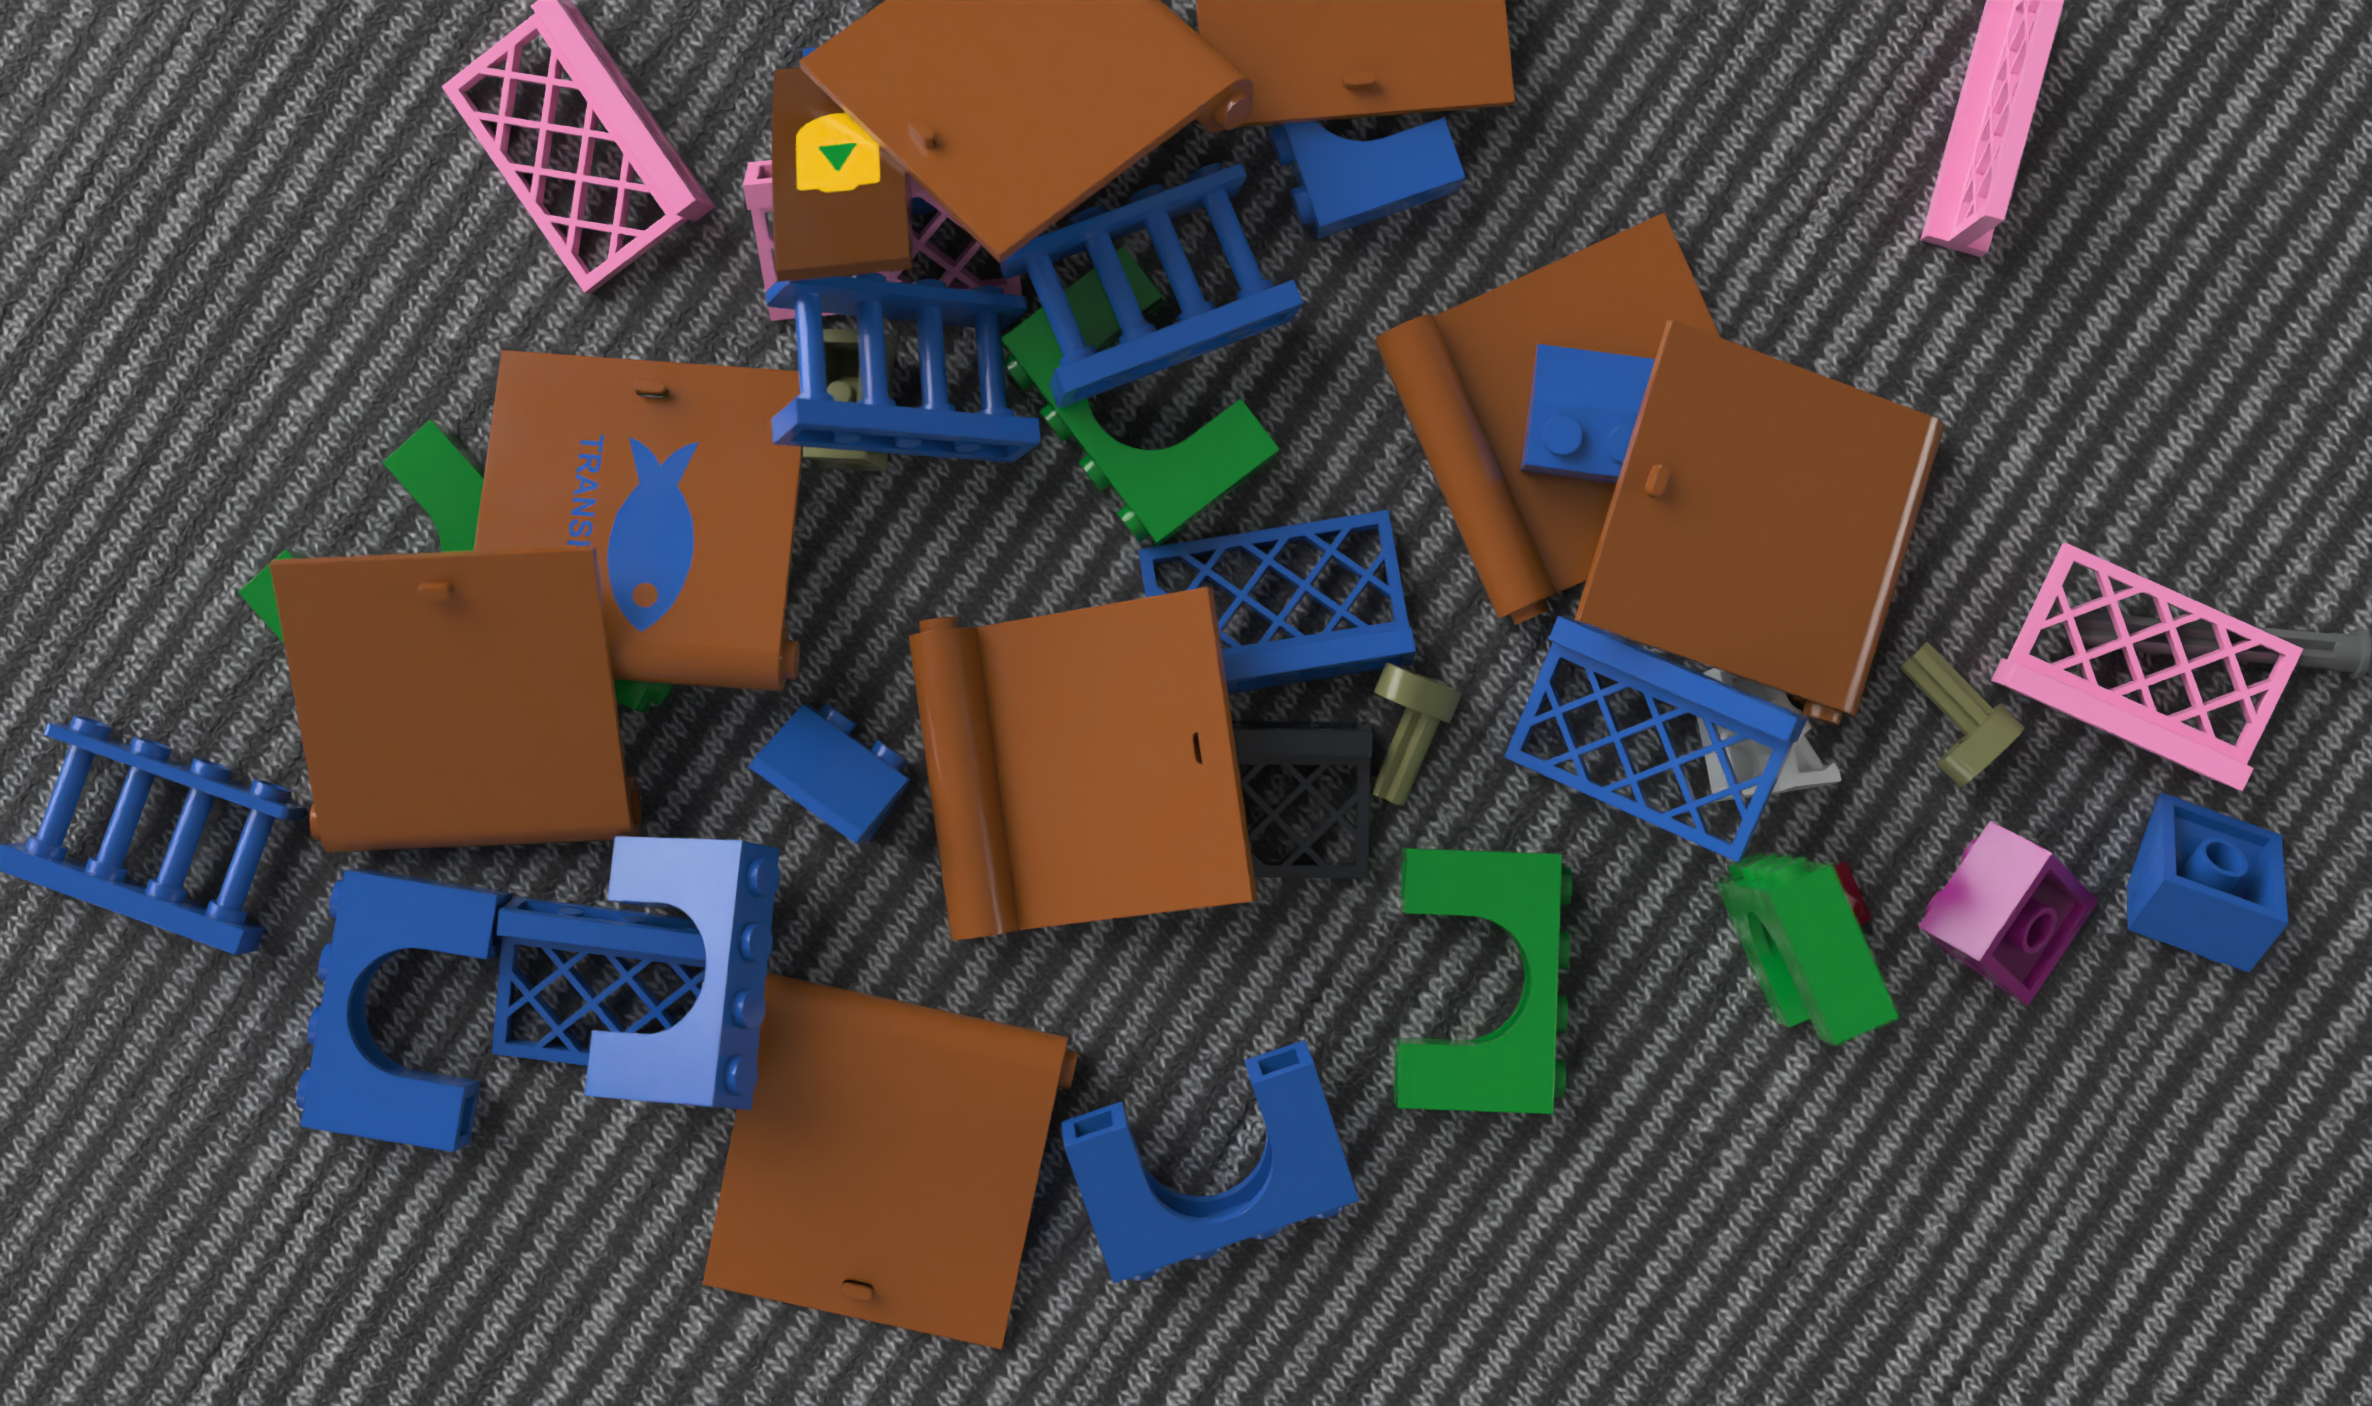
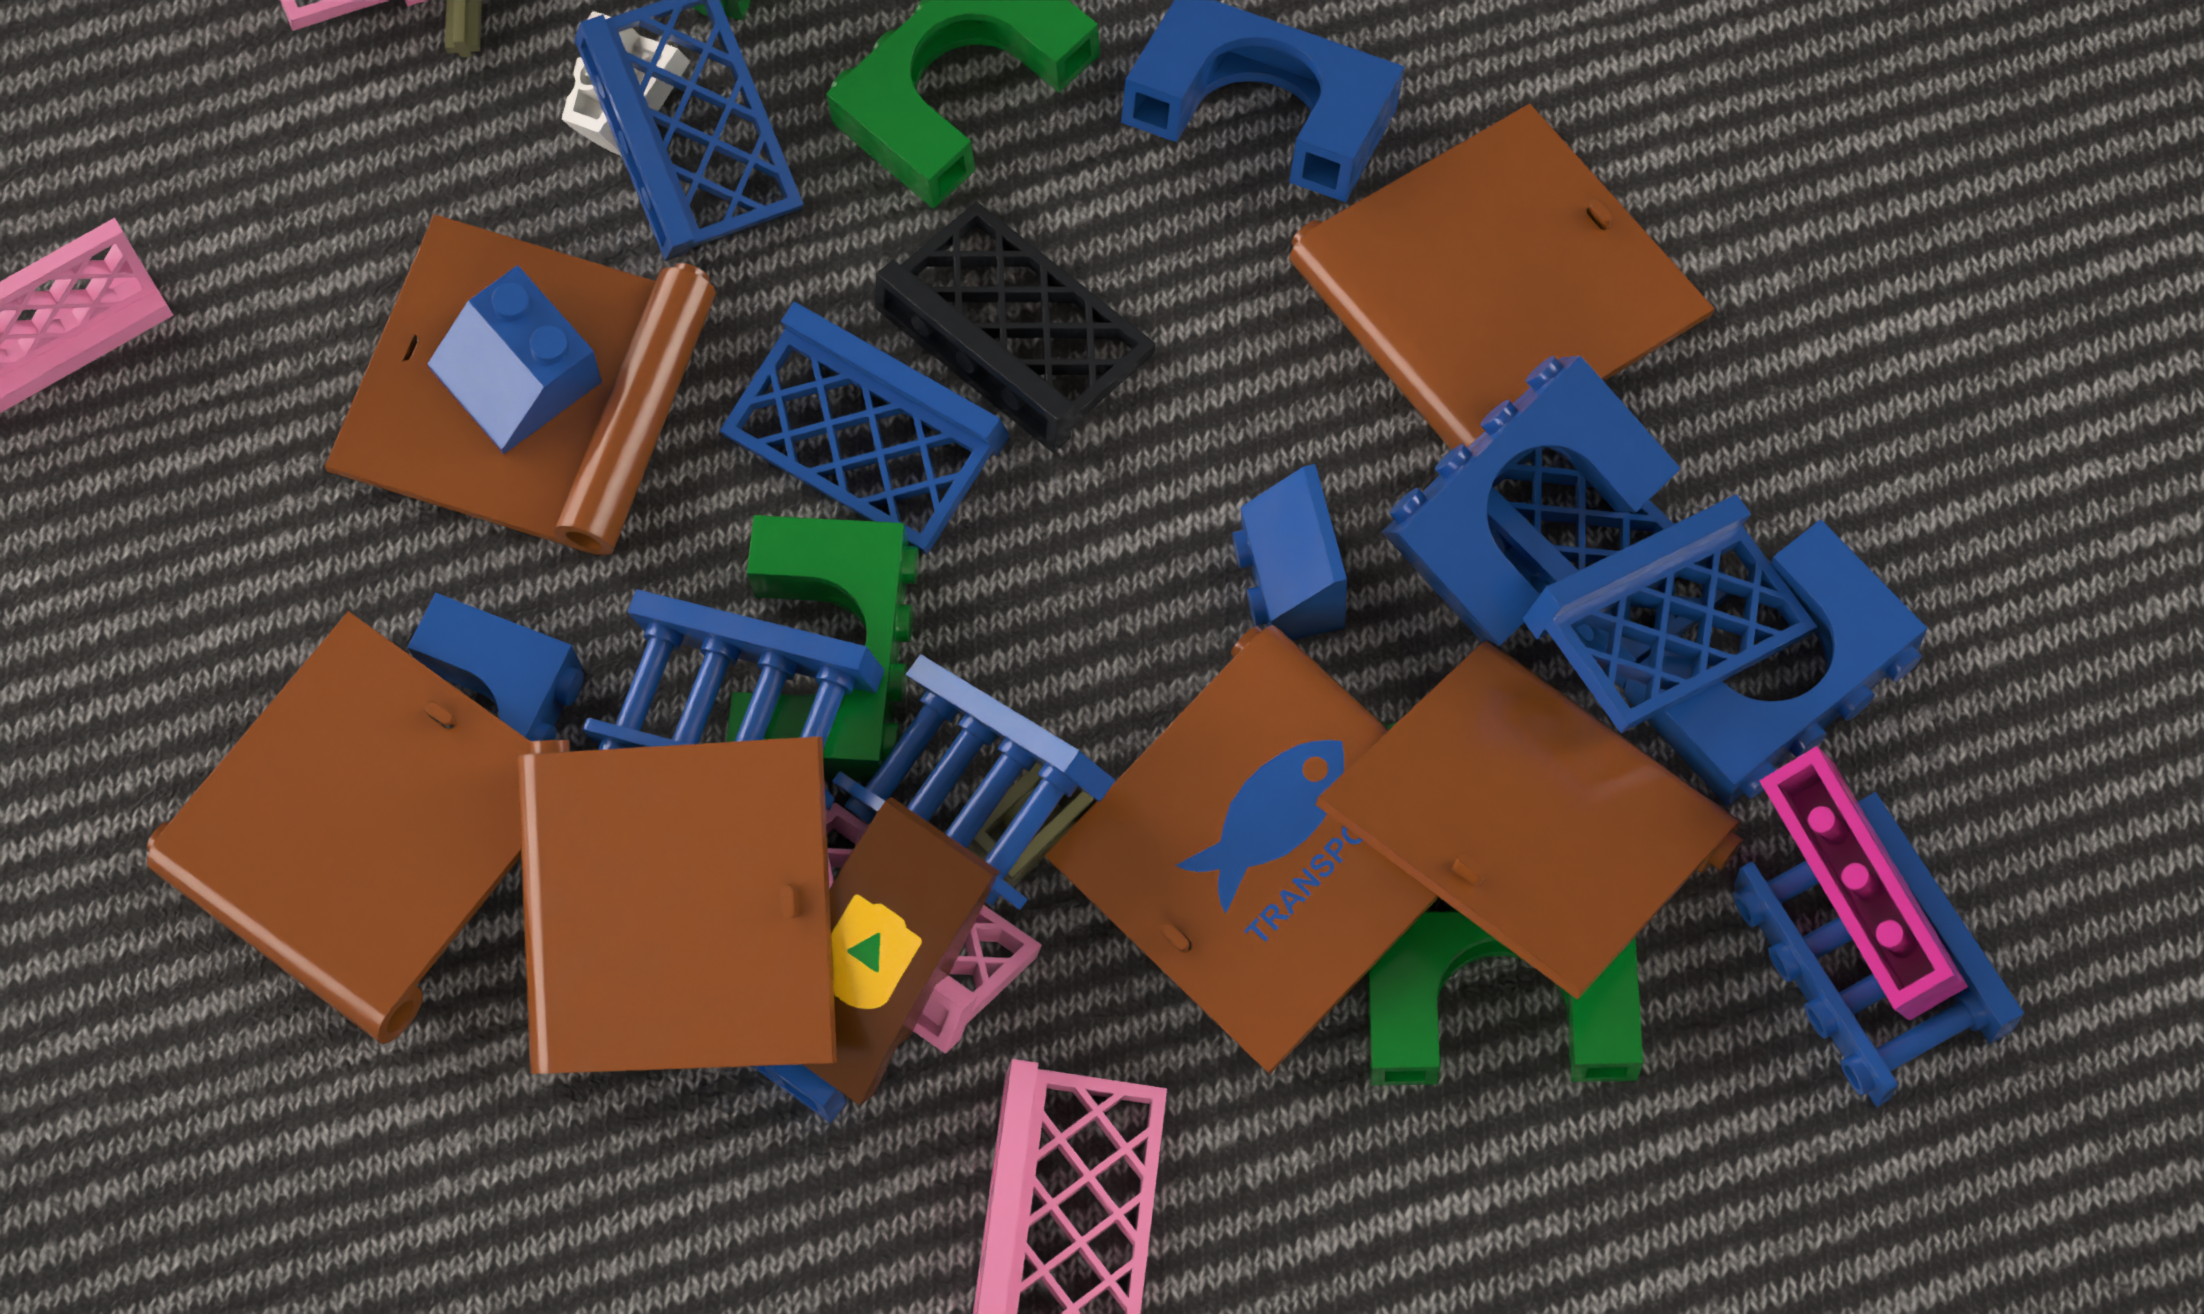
camera: 130 degrees left, 20 degrees down
(170, 859) = (1863, 884): none -> dark pink brick
(549, 977) = (1634, 576): none -> blue fence
(1077, 766) = (1105, 419): dark orange door -> none
(1425, 706) = (823, 277): olive piece -> none
(1760, 520) = (474, 190): dark orange door -> none

